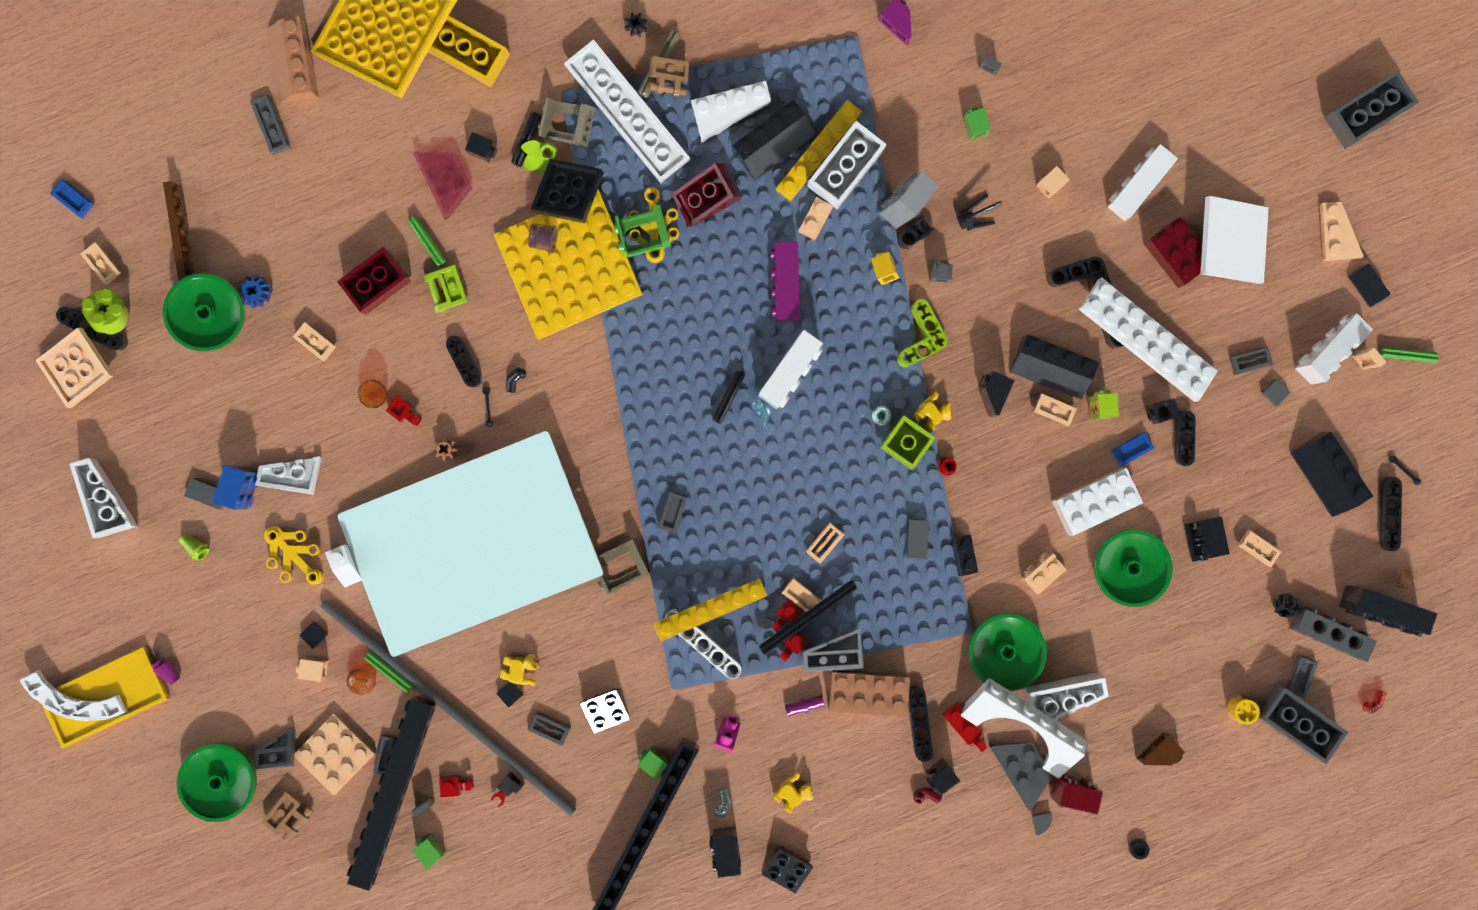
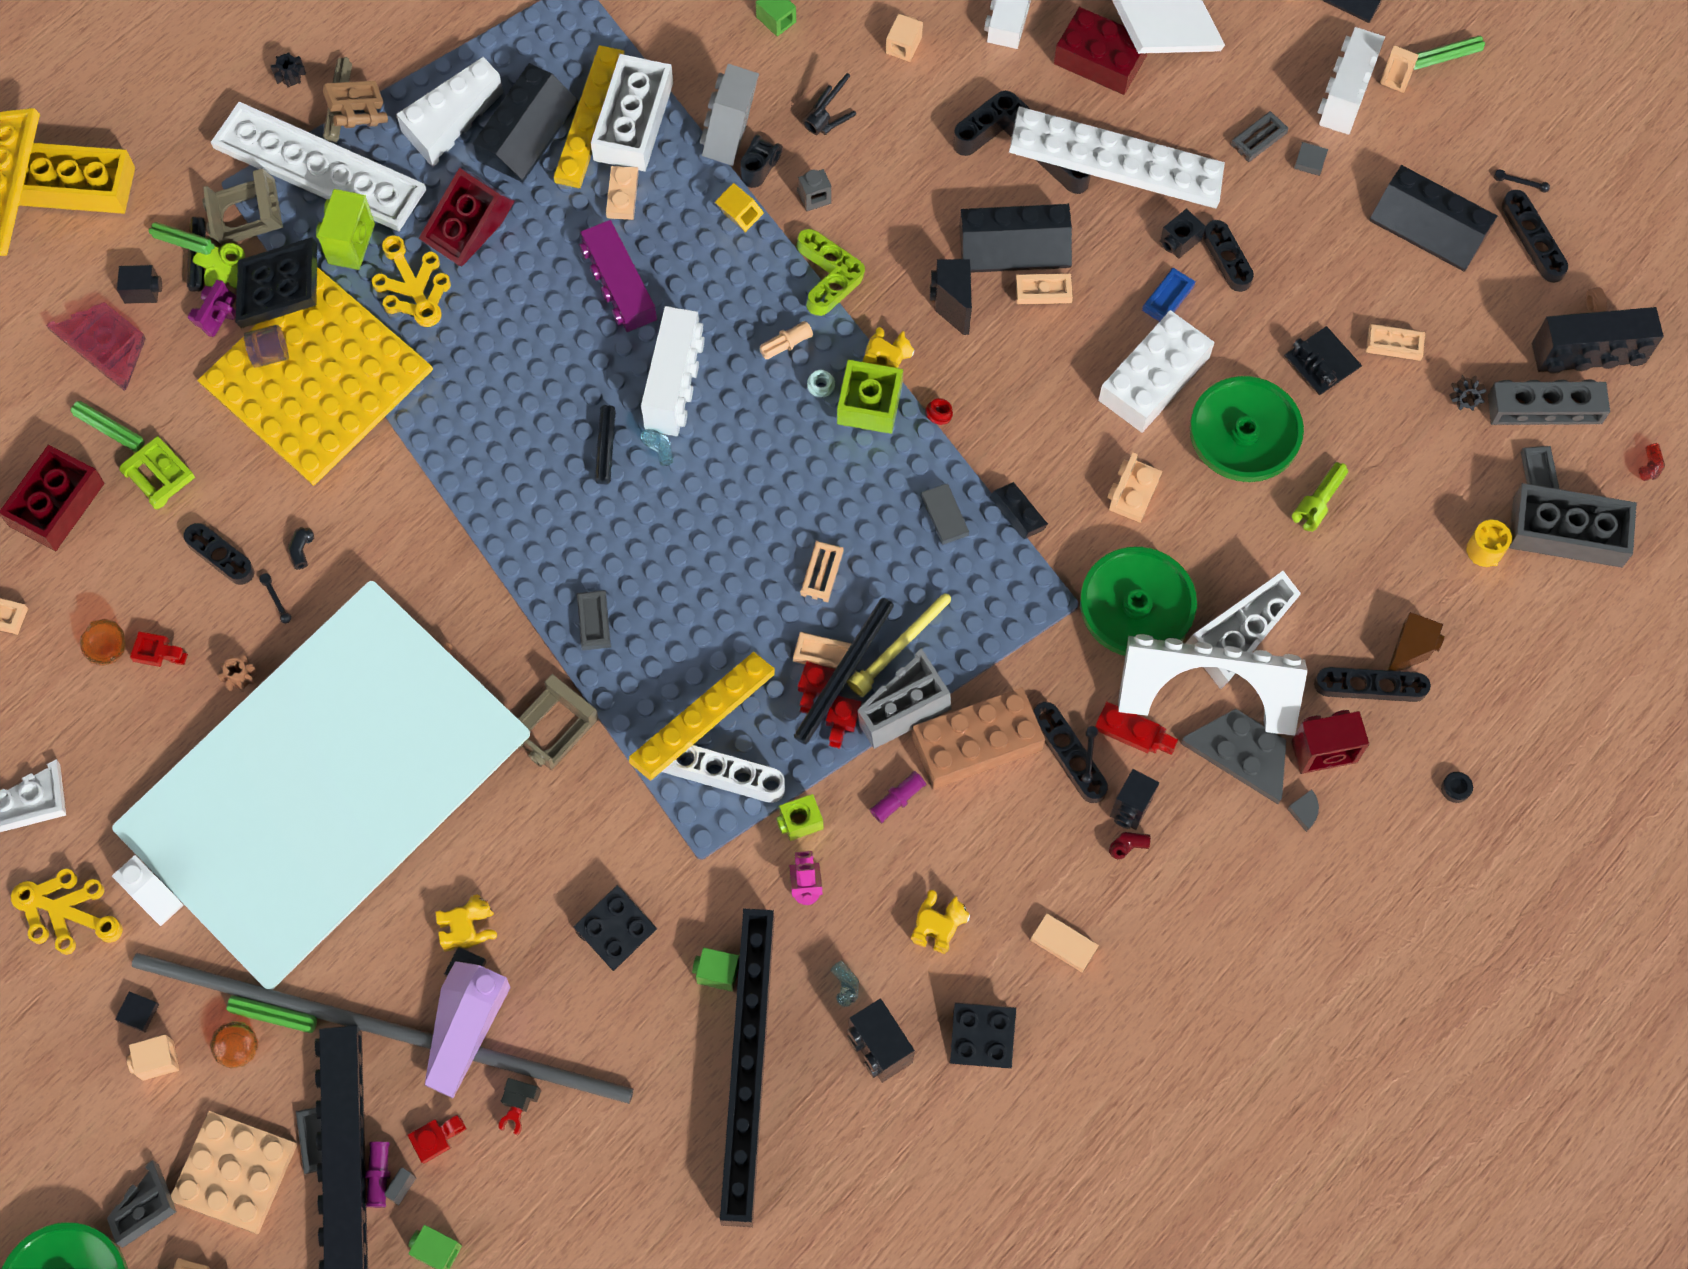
camera: 20 degrees left, 20 degrees down
(413, 793) = (377, 1174): none -> magenta pin
(496, 726) = (463, 1017): none -> lavender wedge
(519, 126) = (181, 238): none -> bright green axle
(523, 188) = (214, 310): none -> magenta hips
(547, 719) = (544, 1004): dark grey tile -> none
(623, 225) = (411, 265): bright green panel -> none
(625, 172) = (345, 229): none -> lime brick
(748, 699) = (806, 806): none -> lime brick
(817, 626) = (861, 681): none -> light yellow piece
(860, 836) = (1064, 942): none -> light nougat tile
(873, 375) = (786, 340): none -> light nougat axle
(938, 719) = (1091, 733): none -> black hinge
(1103, 405) = (1102, 253): lime brick -> none
(1123, 762) = (1372, 688): none -> black beam
(1147, 637) = (1314, 507): none -> lime piece

